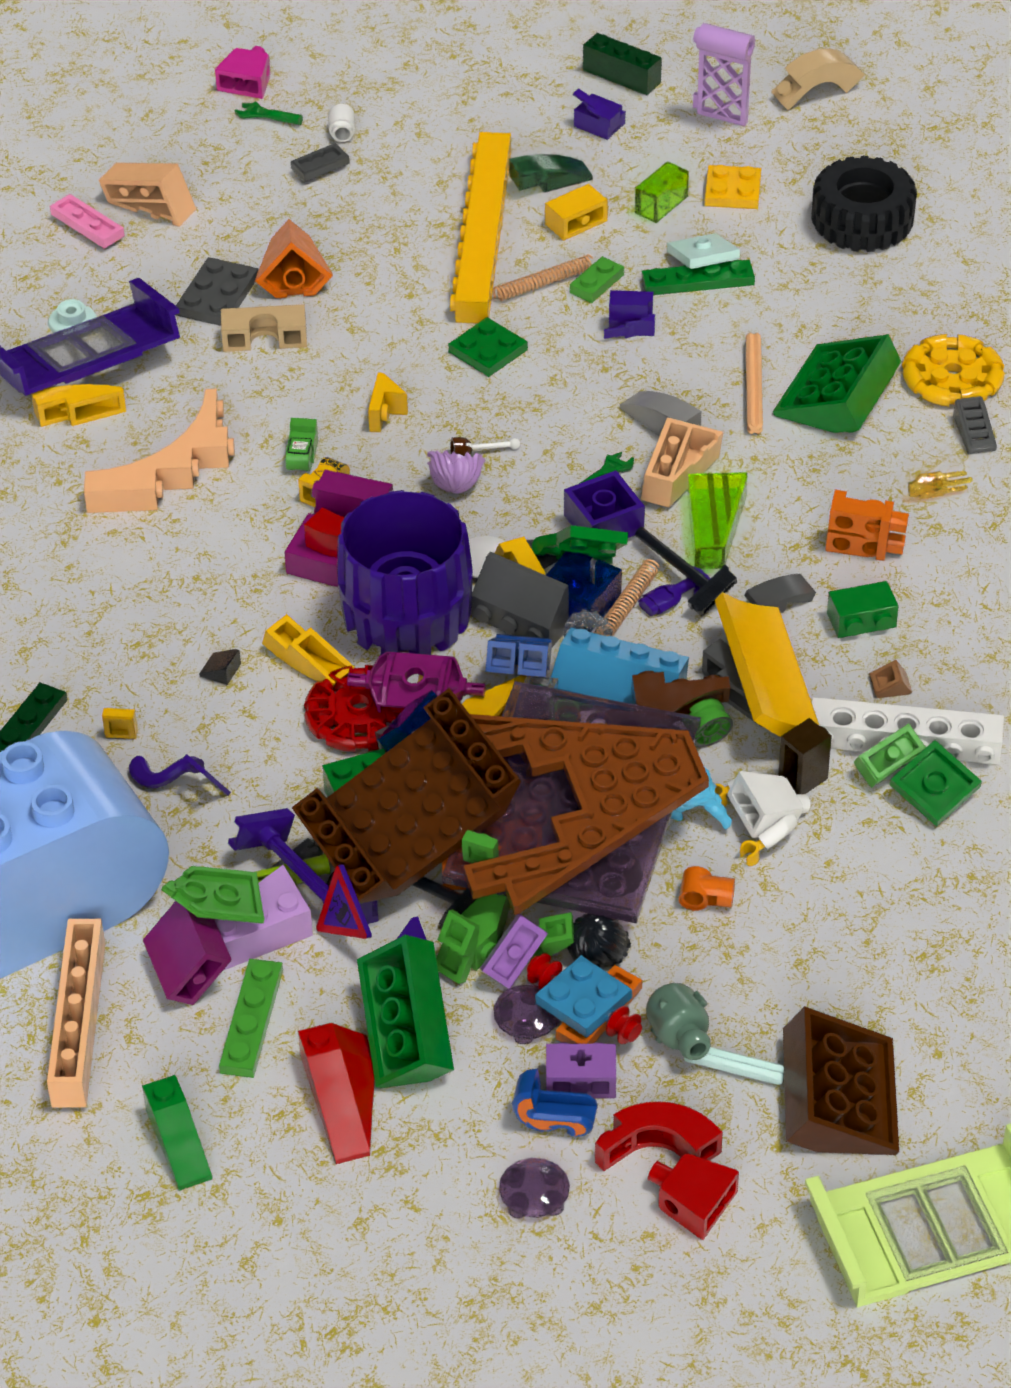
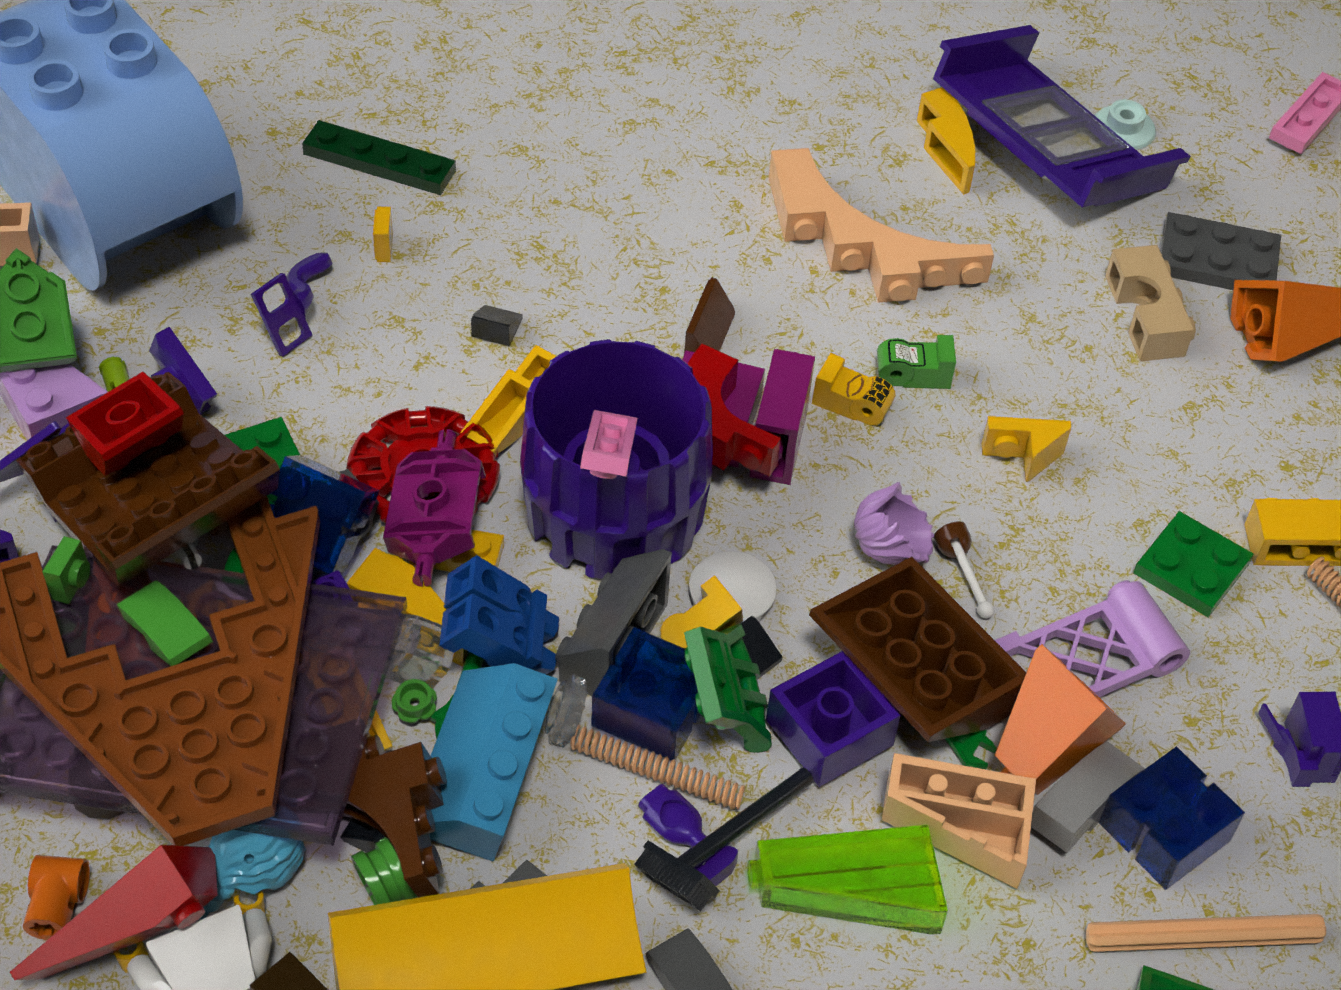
camera: 80 degrees right, 5 degrees up
(244, 551) = (710, 319): none -> reddish brown slope
(370, 802) = (126, 423): none -> red slope
(433, 540) = (608, 444): none -> bright pink plate
(535, 792) = (165, 623): none -> bright green slope
(547, 374) = (1136, 624): none -> lavender piece
(560, 458) = (923, 652): none -> reddish brown slope
(621, 411) = (1053, 722): none -> orange slope
(679, 373) = (1182, 813): none -> clear blue piece
(738, 815) = (150, 899): none -> red wedge

